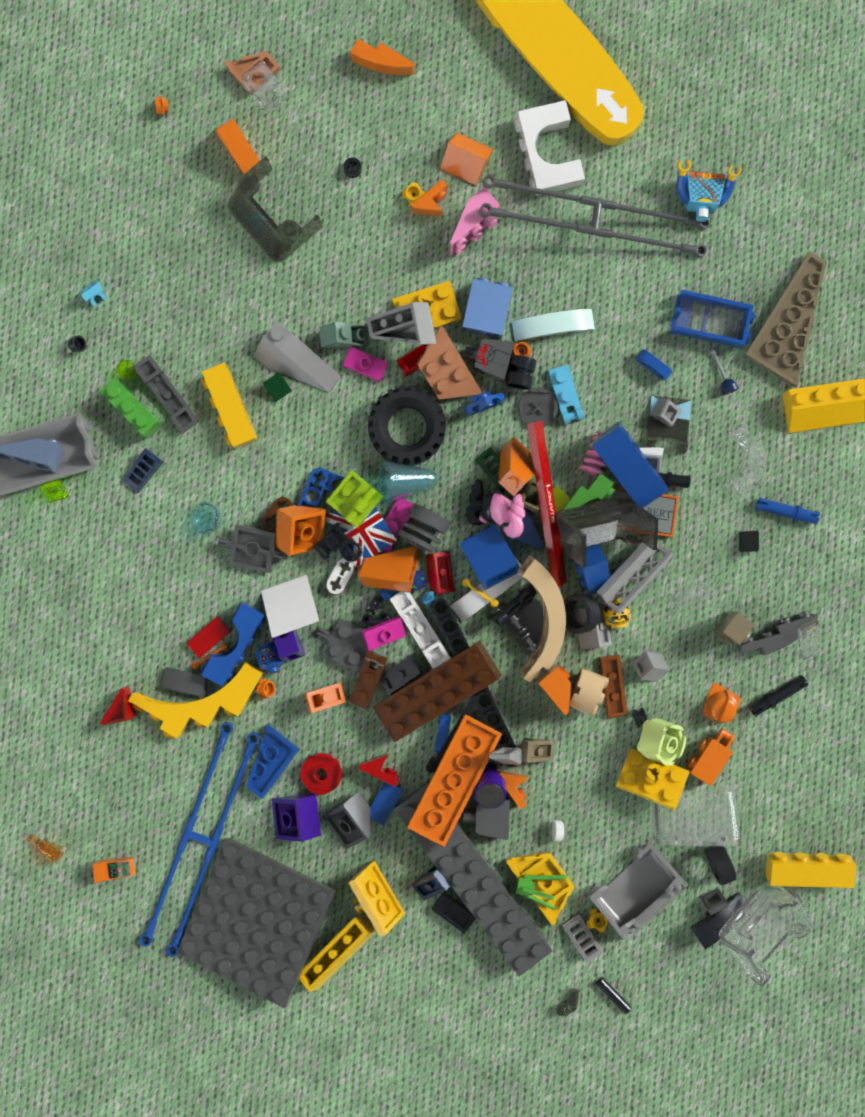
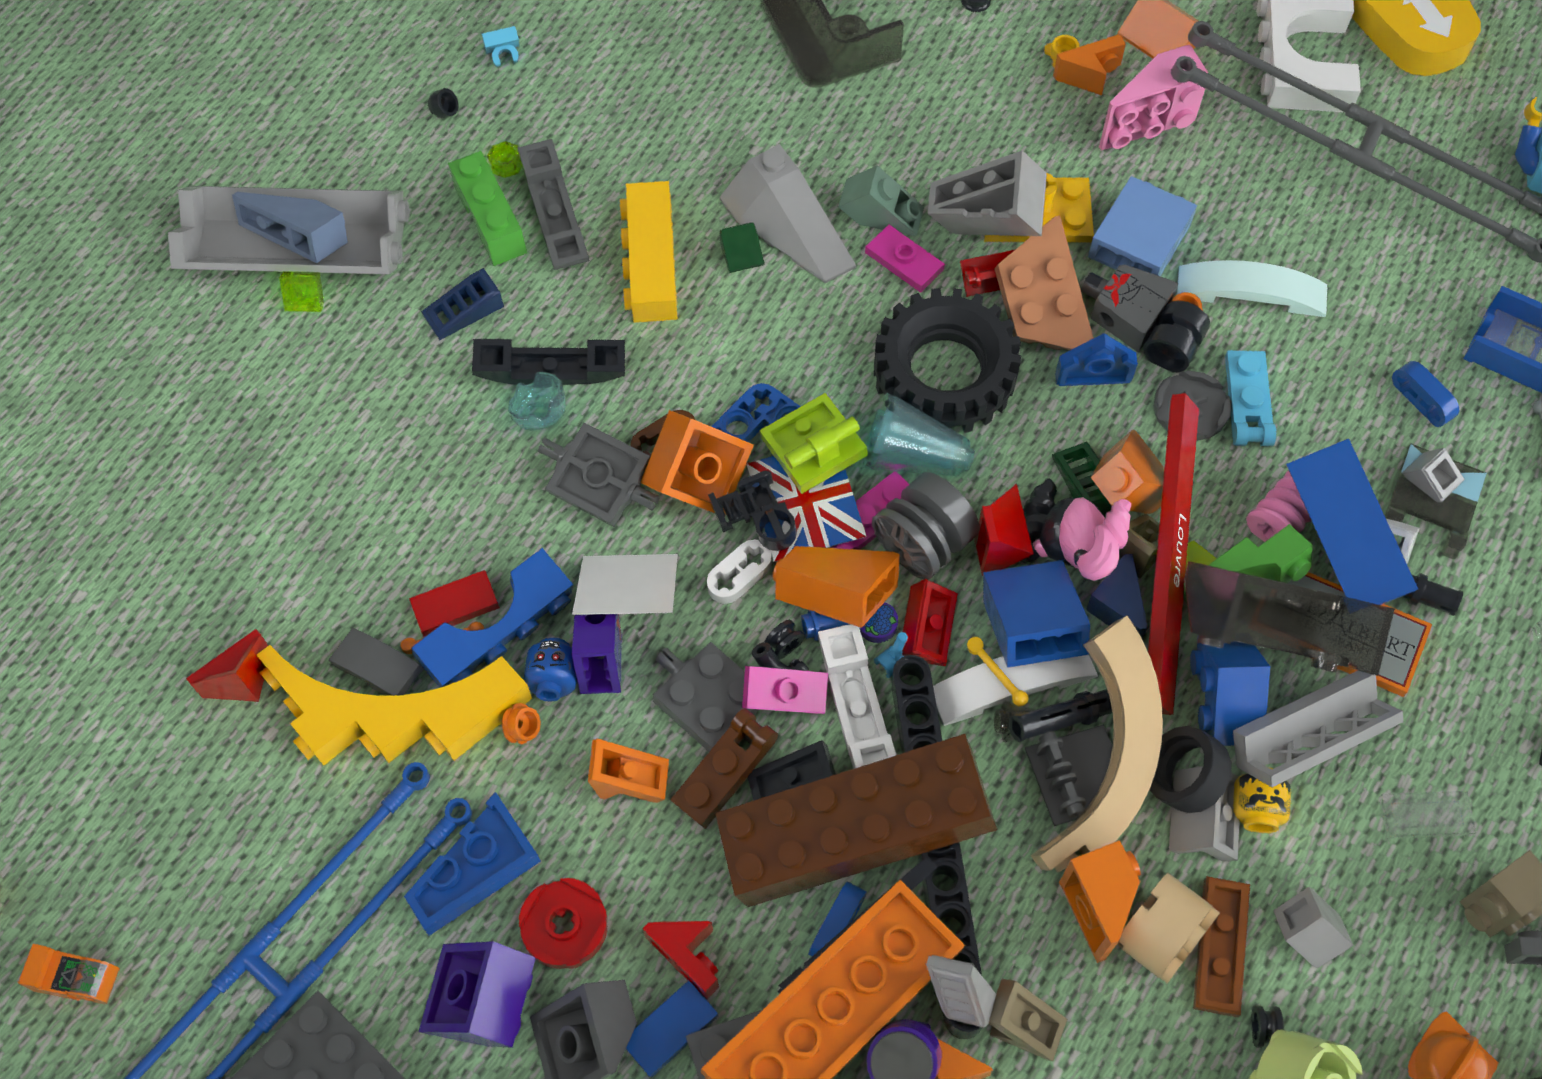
camera: 20 degrees right, 25 degrees down
(201, 491) = (506, 364): none -> black slope
(464, 517) = (1002, 533): none -> red slope

